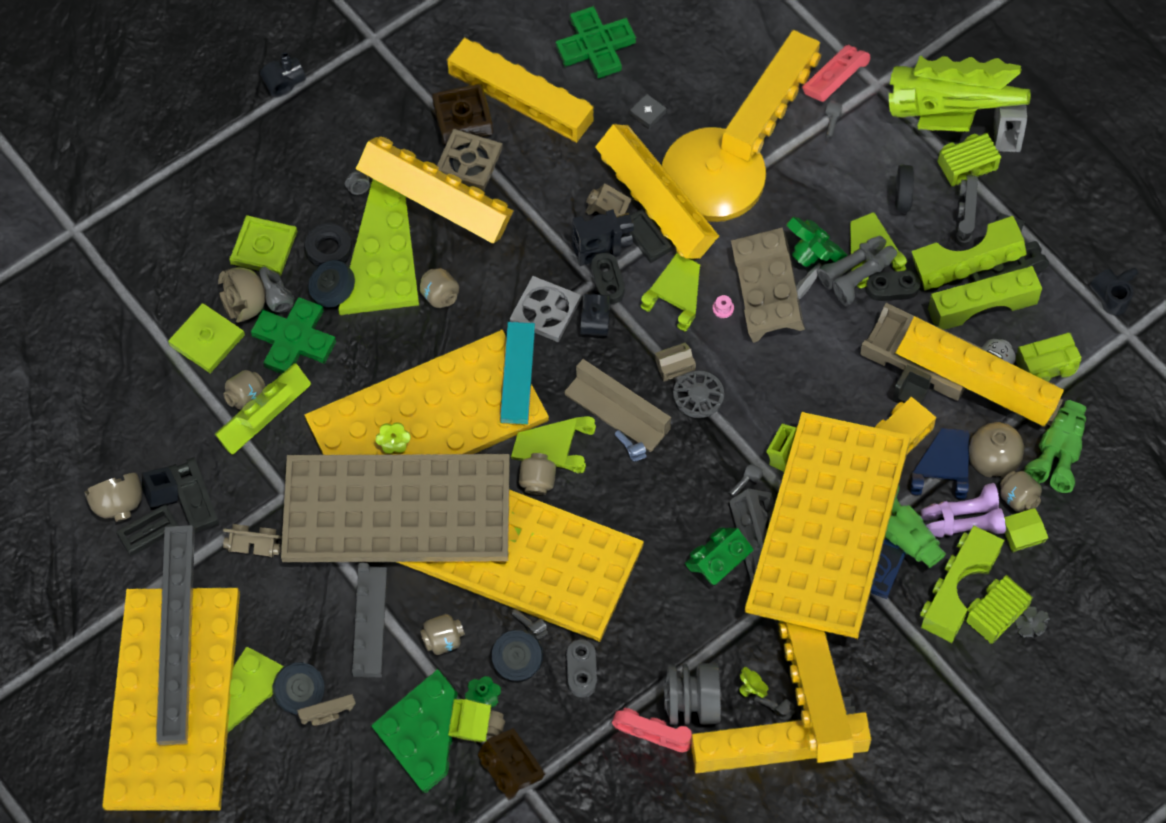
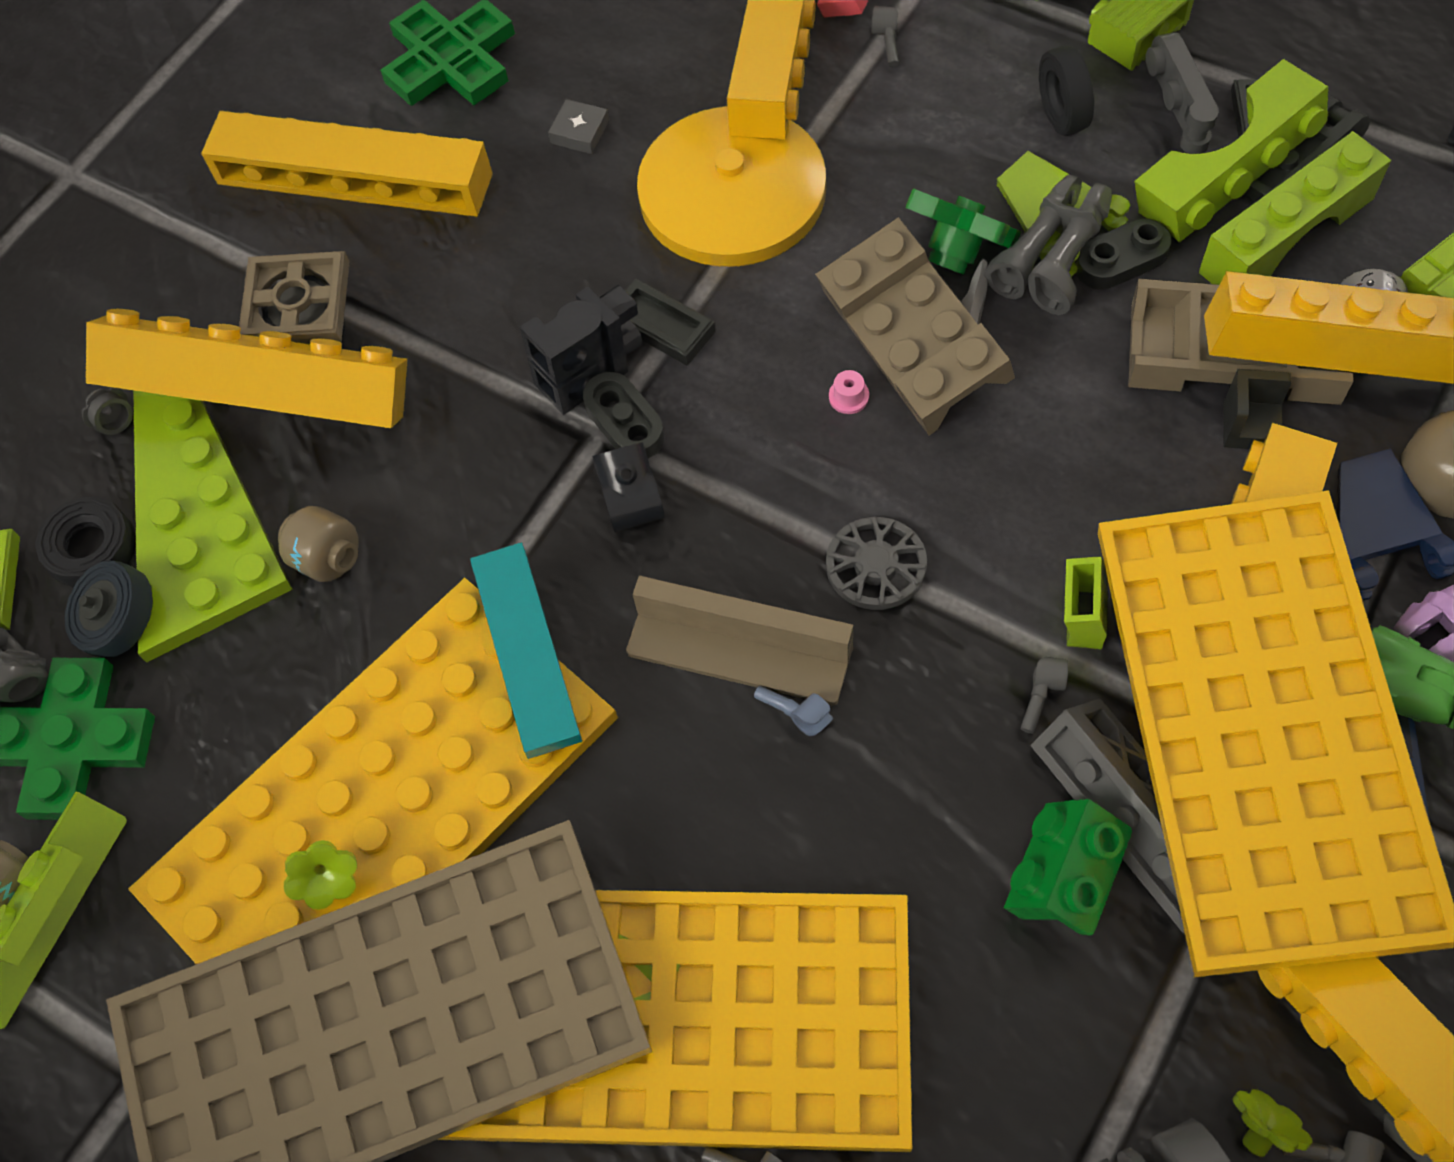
camera: 15 degrees left, 0 degrees up
(465, 100) = (255, 223): dark brown brick -> none
(537, 474) = (639, 836): dark tan head -> none
(554, 332) = (564, 547): light grey piece -> none
(555, 442) = (642, 761): lime flag -> none
(606, 199) = (563, 281): dark tan bracket -> none
(656, 192) = (651, 241): yellow brick -> none
(675, 361) = (808, 519): dark tan piece -> none
(677, 286) = (754, 386): lime flag -> none

